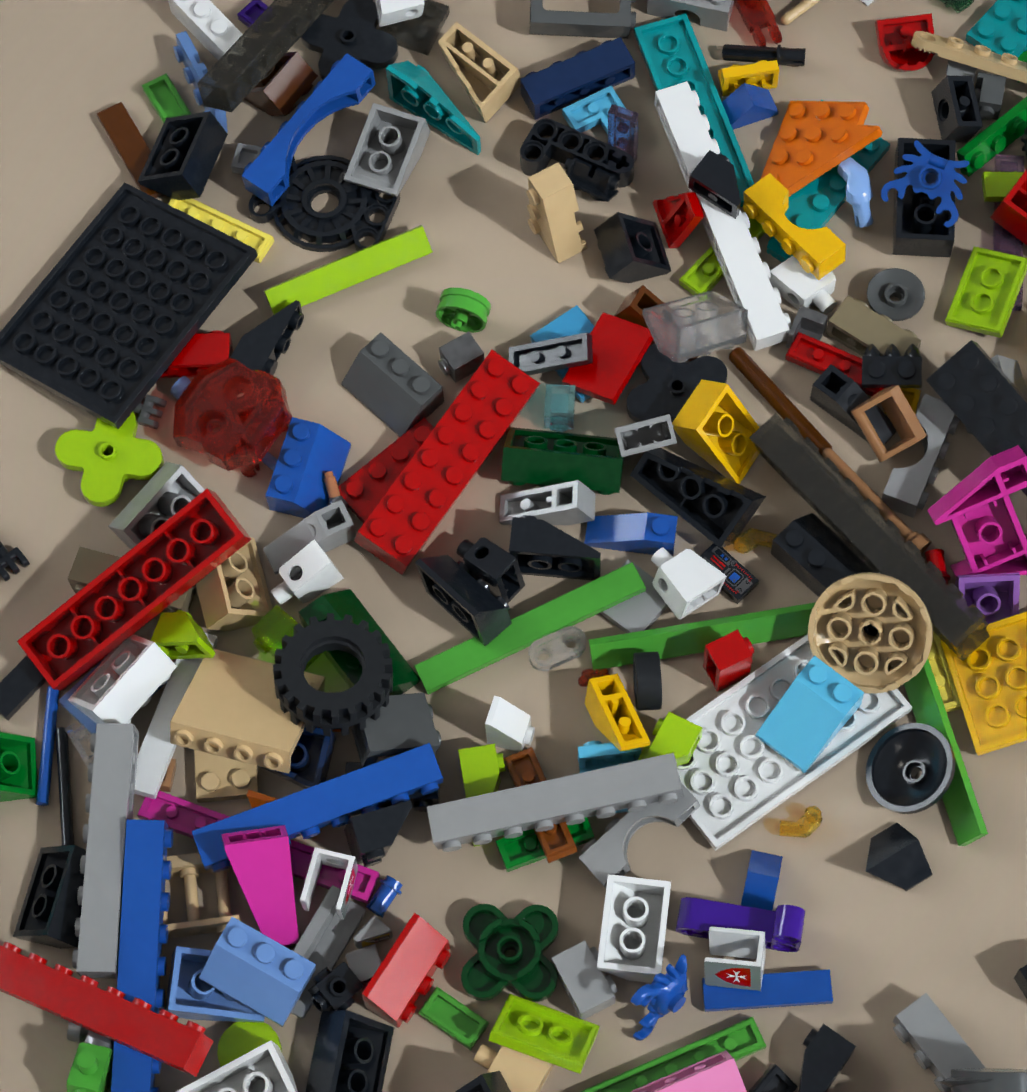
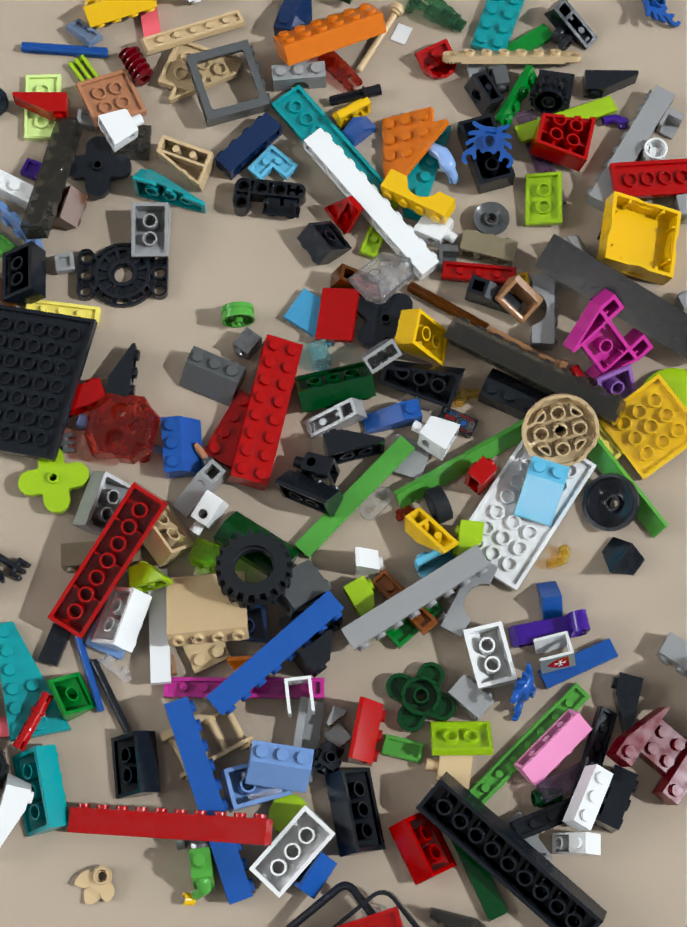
camera: 25 degrees left, 5 degrees up
(103, 865) = (157, 727): light grey brick -> none
(265, 875) = (260, 704): dark pink slope -> none
(343, 87) = (108, 198): blue arch -> none
(349, 270) = (156, 313): lime tile -> none
(384, 896) = (332, 690): blue pin -> none
(552, 212) = (270, 236): tan wedge -> none
(553, 354) = (303, 324): plate -> none
(623, 130) = (293, 170): tile -> none
(717, 183) = (364, 185): black slope -> none
(891, 368) = (508, 265): black plate -> none

